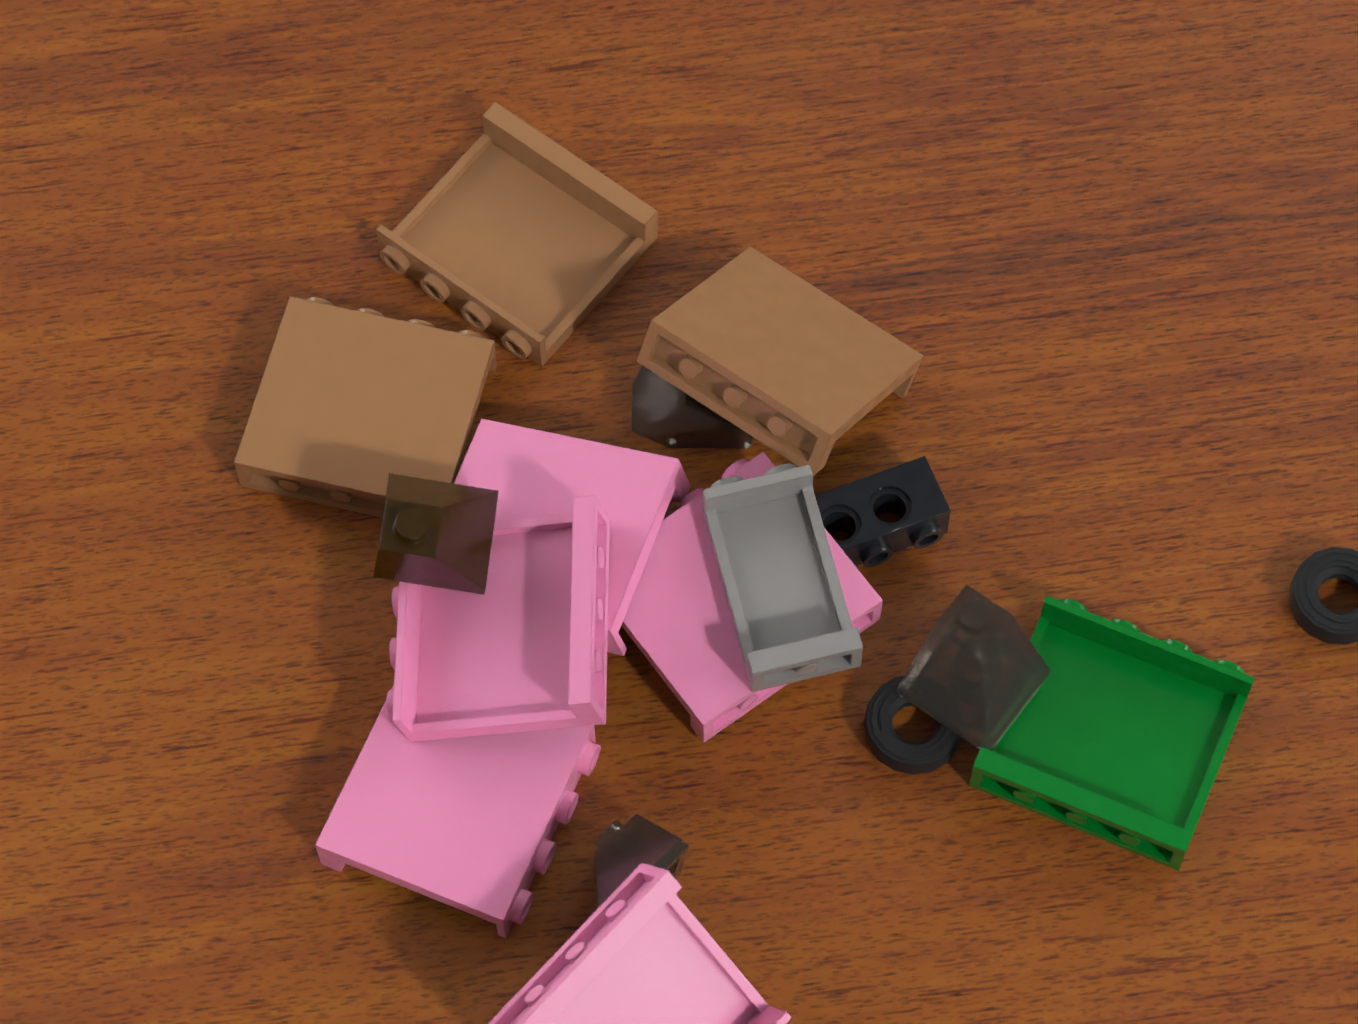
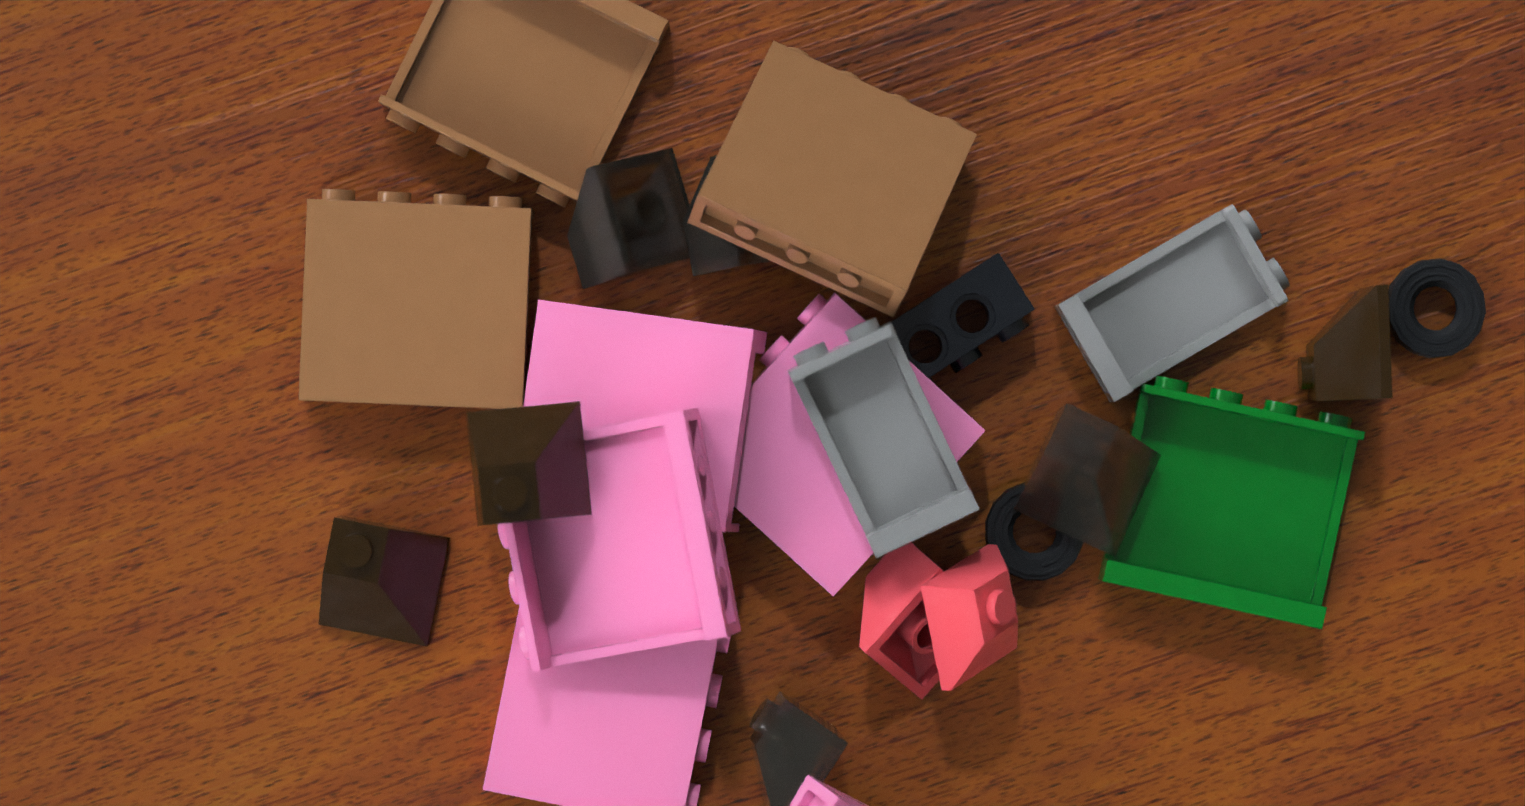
camera: 15 degrees left, 25 degrees up
(267, 645) = (382, 580): none -> dark brown slope
(581, 375) = (629, 218): none -> clear smoke slope
(785, 776) = (896, 620): none -> coral slope
(836, 770) = (971, 616): none -> coral slope
(1086, 542) = (1173, 301): none -> light grey panel
(1251, 607) = (1351, 351): none -> dark brown slope

